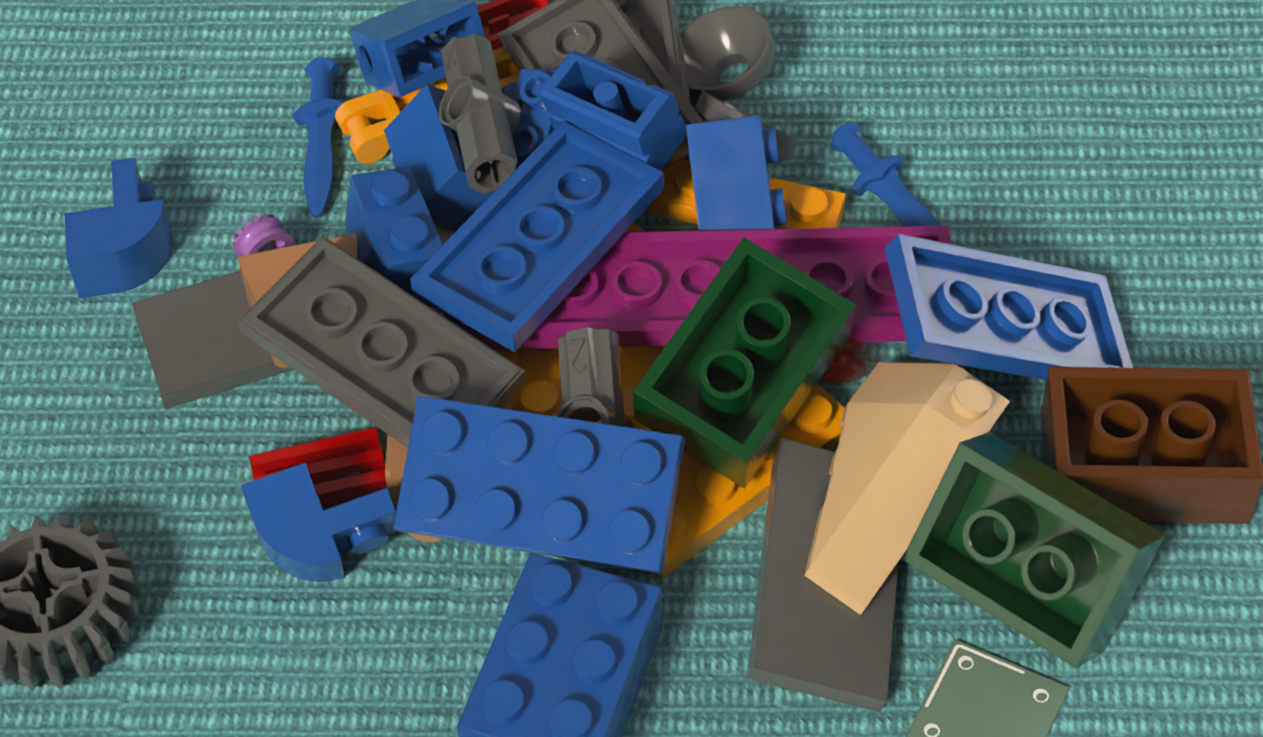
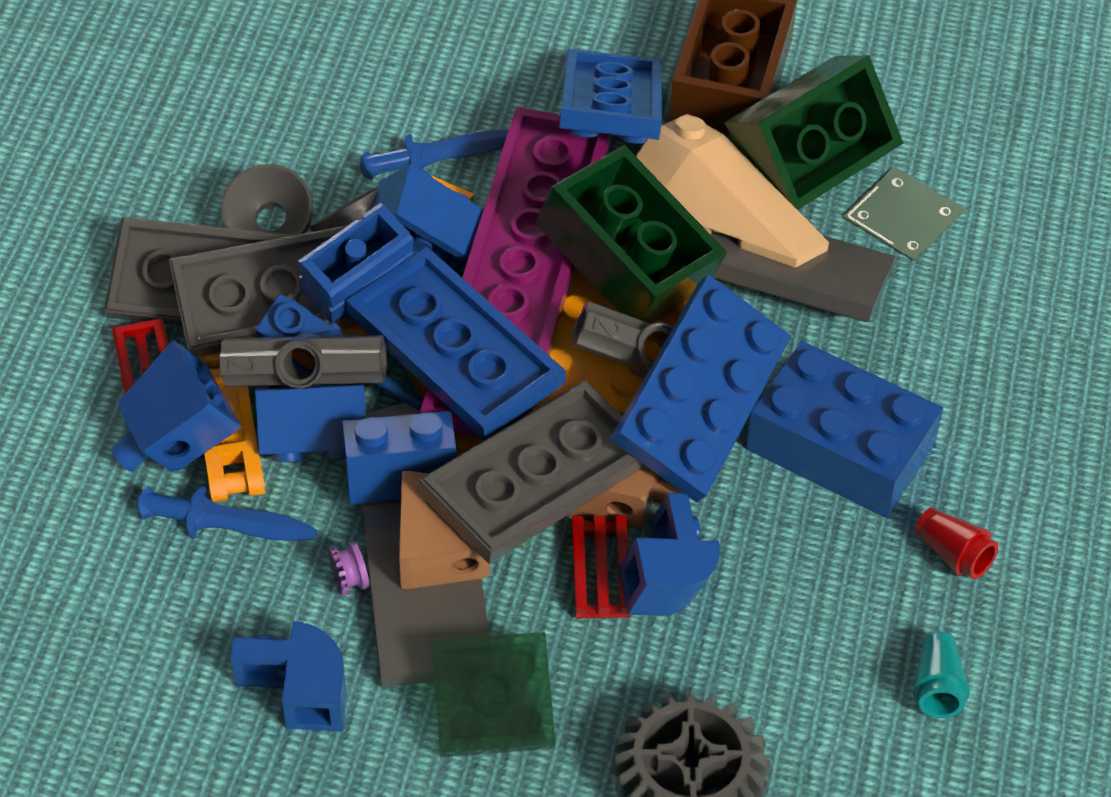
camera: 80 degrees left, 0 degrees up
(113, 398) = (493, 694): none -> clear green plate

